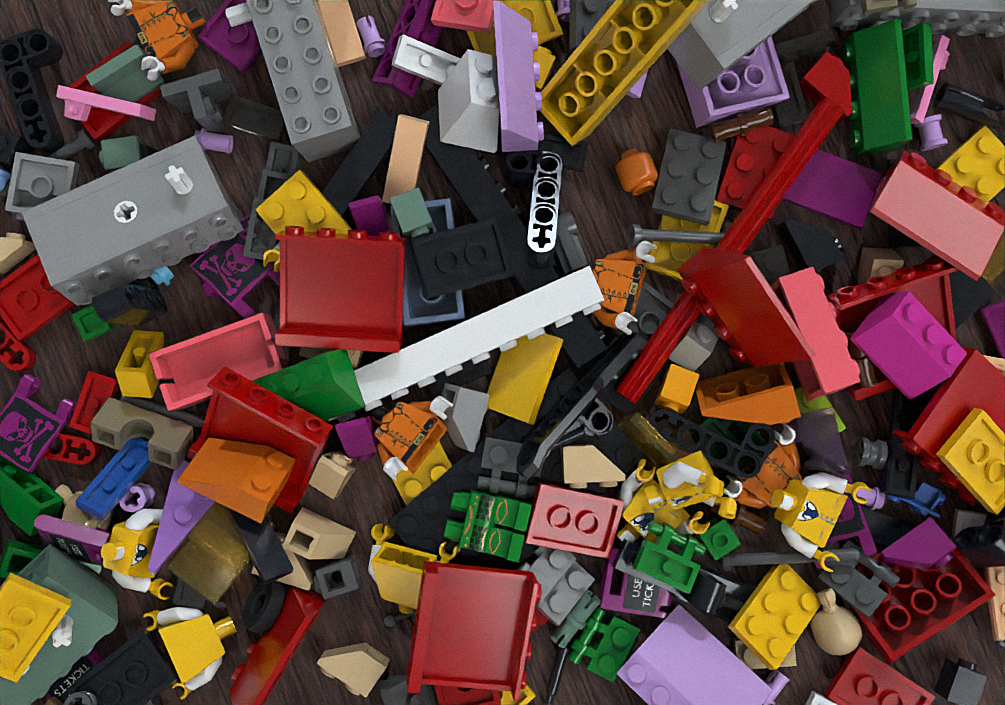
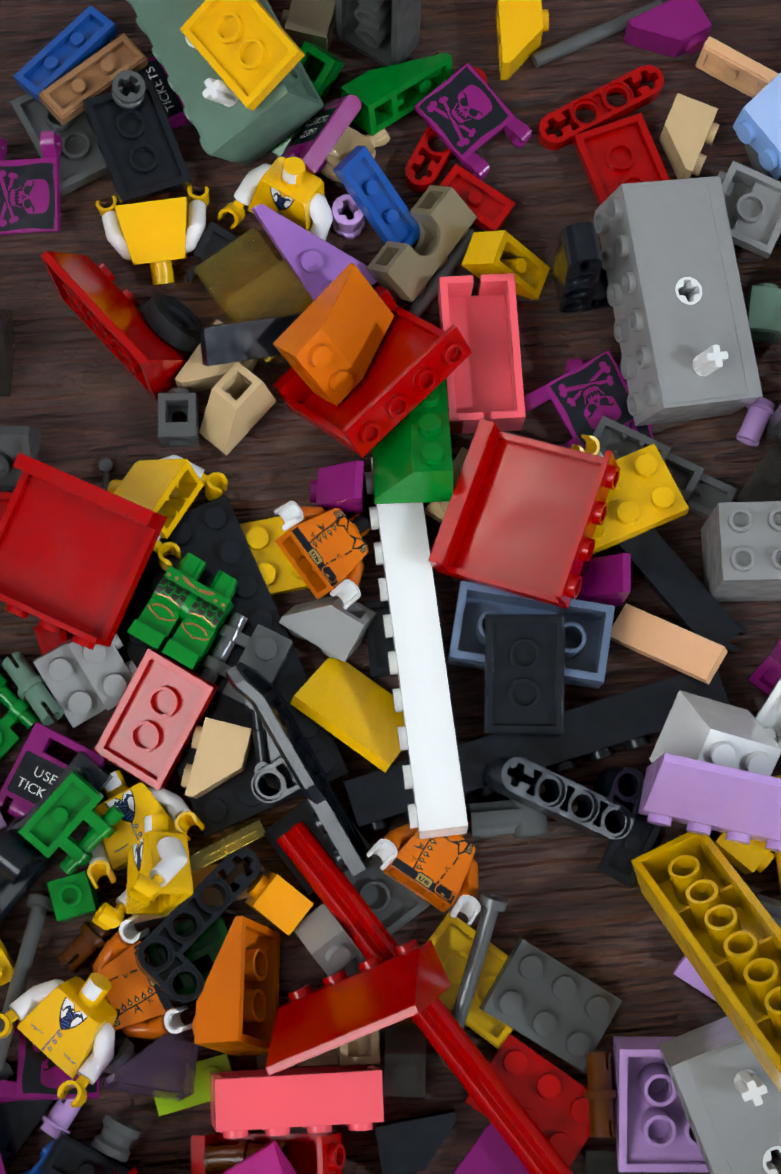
camera: 105 degrees right, 10 degrees down
(90, 324) = (569, 214): green plate -> none
(162, 275) = (606, 317): medium azure plate -> none
(332, 473) = (305, 446): tan slope -> none
(354, 665) = (66, 408): tan slope -> none
(412, 213) = (596, 627): sand green brick -> none
(636, 172) = (575, 936): orange head -> none

